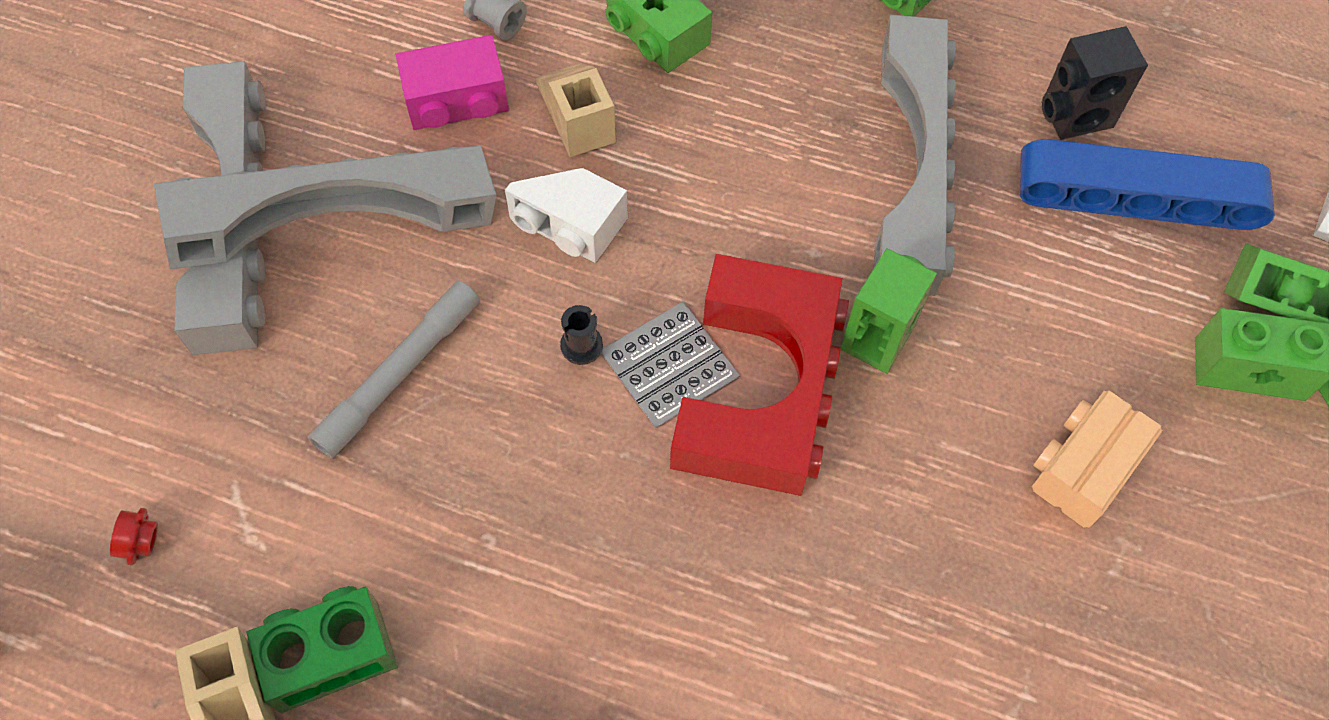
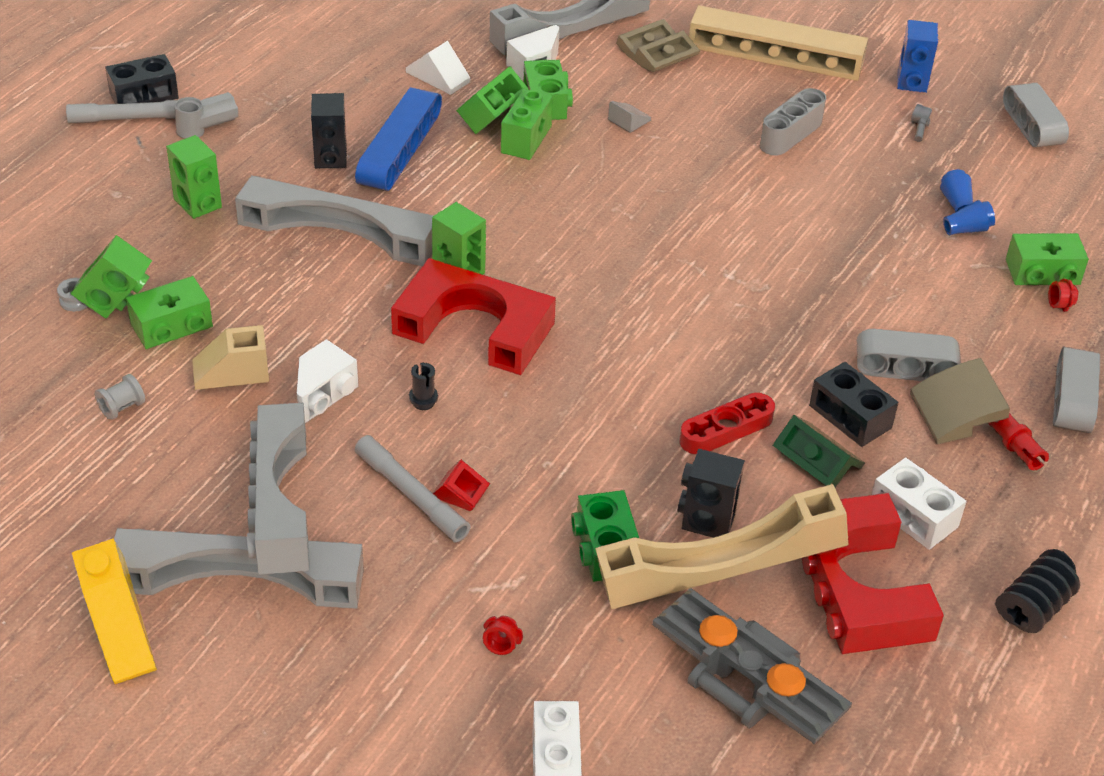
camera: 80 degrees left, 20 degrees down
(123, 85) = (114, 610): none -> yellow slope
(412, 432) = (461, 486): none -> red slope
(452, 82) = (181, 426): dark pink brick -> none
(669, 361) = (454, 361): light grey sticker -> none
(1096, 457) = (569, 198): light nougat brick -> none

